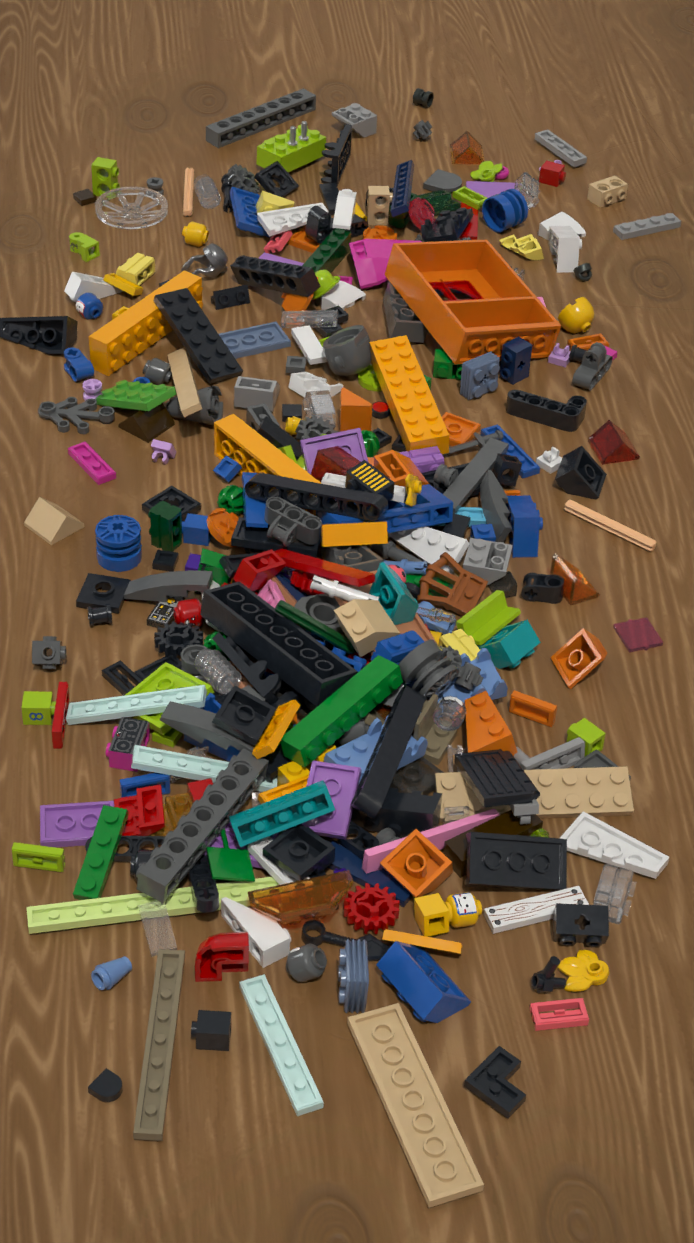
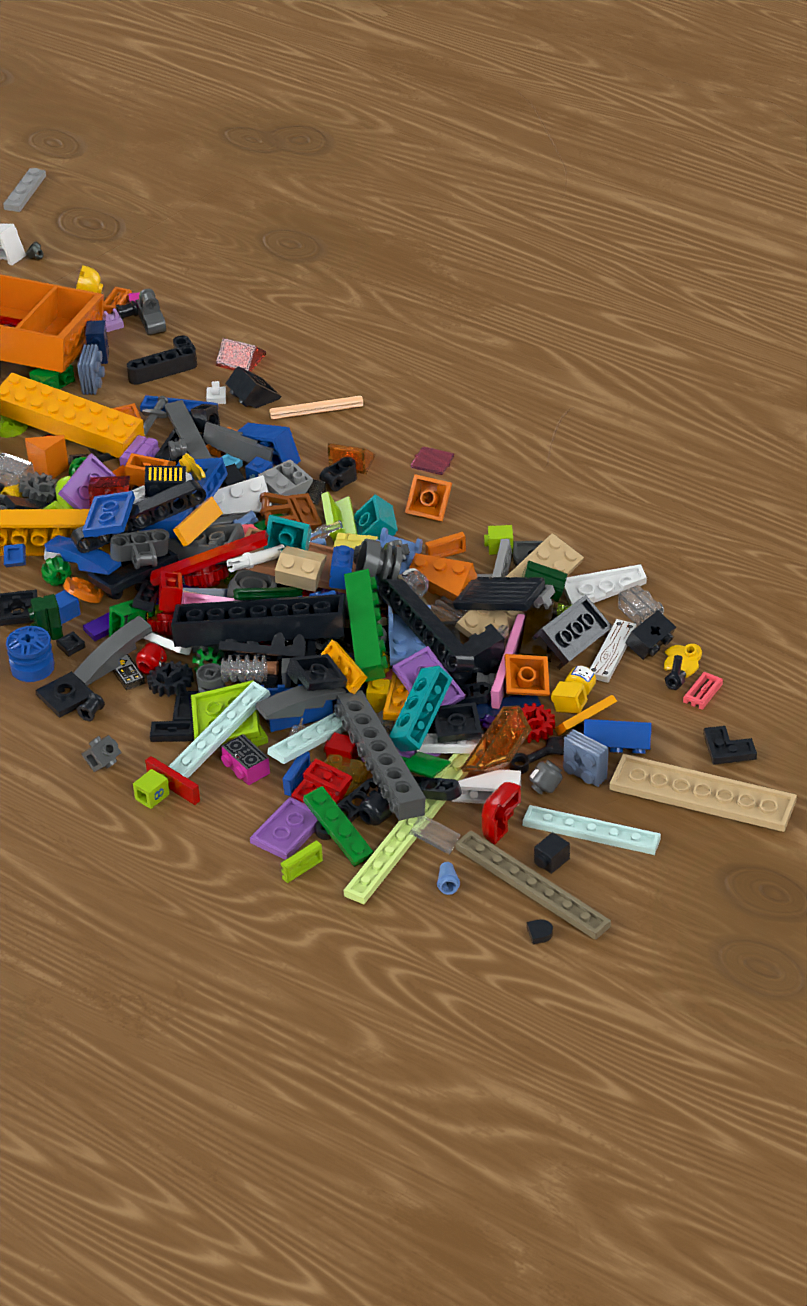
camera: 45 degrees left, 0 degrees up
(287, 476) = (108, 514): none -> blue plate
(555, 800) = (551, 576): none -> dark green brick

